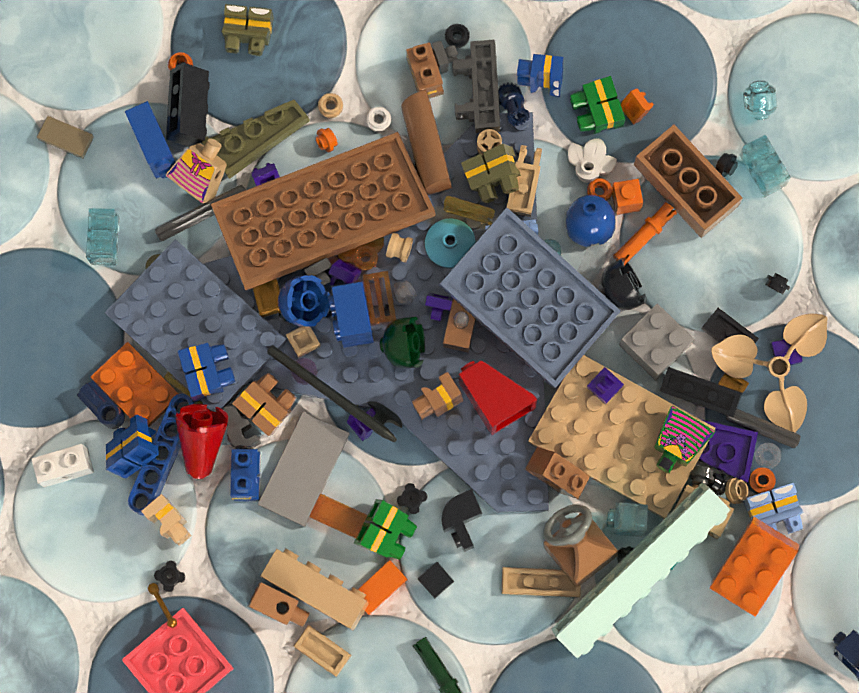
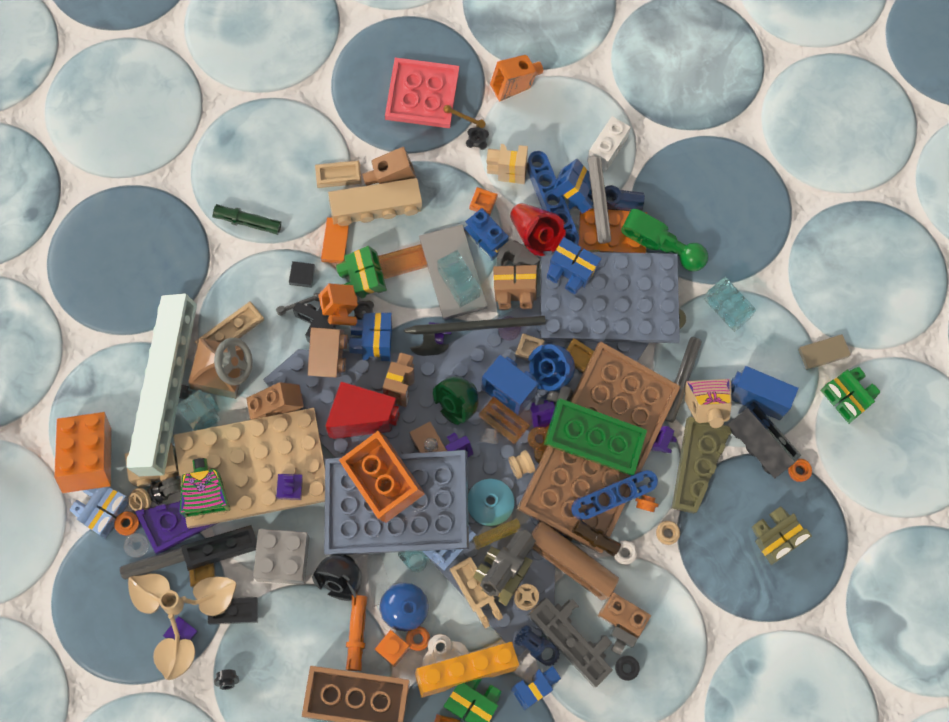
camera: 130 degrees right, 5 degrees down
(82, 602) = (514, 76): none -> orange torso
(83, 85) = (848, 384): none -> green hips
(105, 342) = (655, 236): none -> green beam
(122, 416) = (599, 199): none -> light grey axle
(218, 511) = (483, 199): none -> orange tile
(308, 447) = (458, 278): none -> clear light blue brick
(322, 213) = (595, 437): none -> green plate
(345, 167) = (614, 494): none -> blue beam
(393, 142) = (596, 538): none -> dark brown pin
(421, 462) = (376, 336): none -> blue hips
(429, 514) = (338, 303): none -> orange brick
(479, 470) = (327, 352): none -> medium nougat brick
(481, 561) = (281, 310): none -> dark grey hinge
(484, 169) = (507, 563): none -> dark grey piece
(526, 318) = (381, 477): none -> orange brick
(601, 136) = (465, 668): none -> light orange arch

